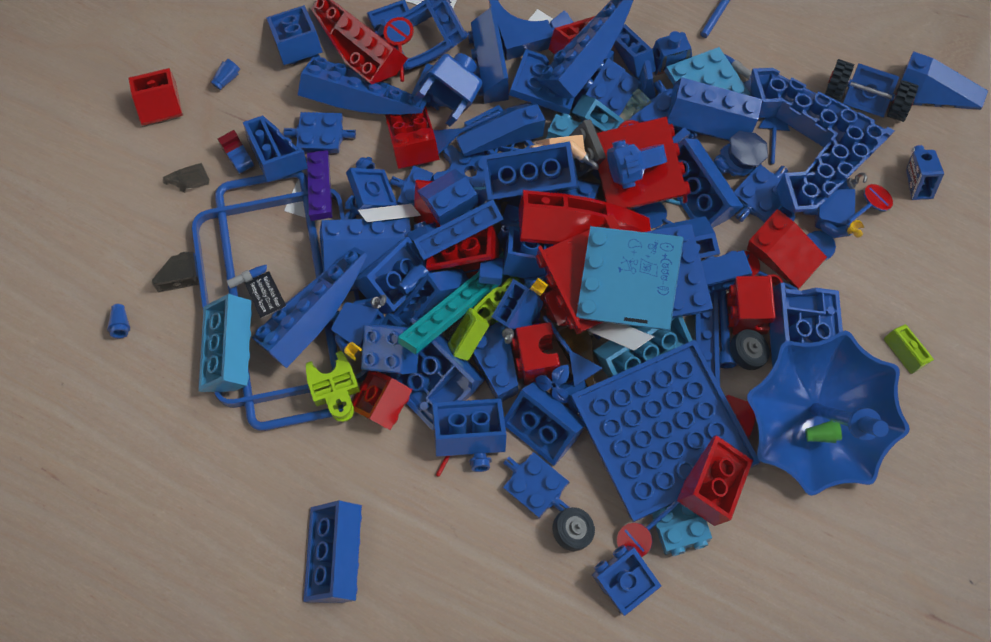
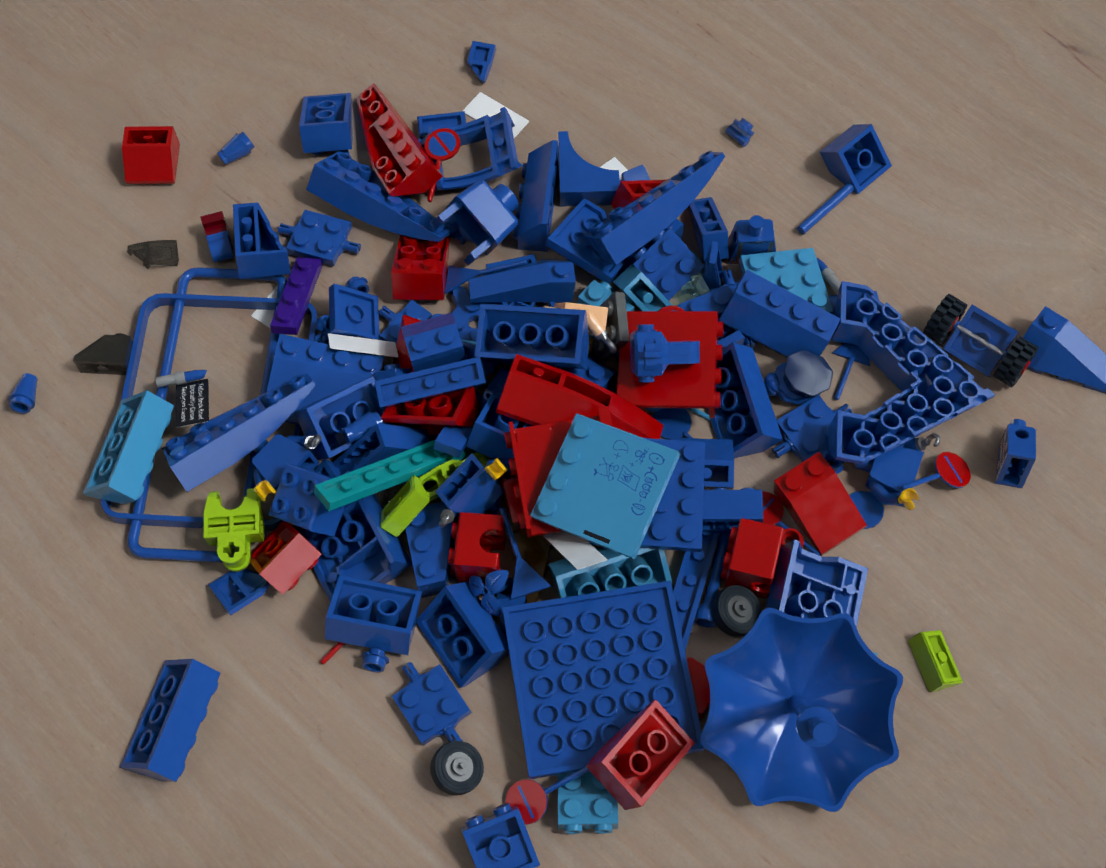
camera: 15 degrees right, 5 degrees down
(352, 435) = (238, 589): none -> blue slope
(826, 432) = (787, 733): bright green cone -> none

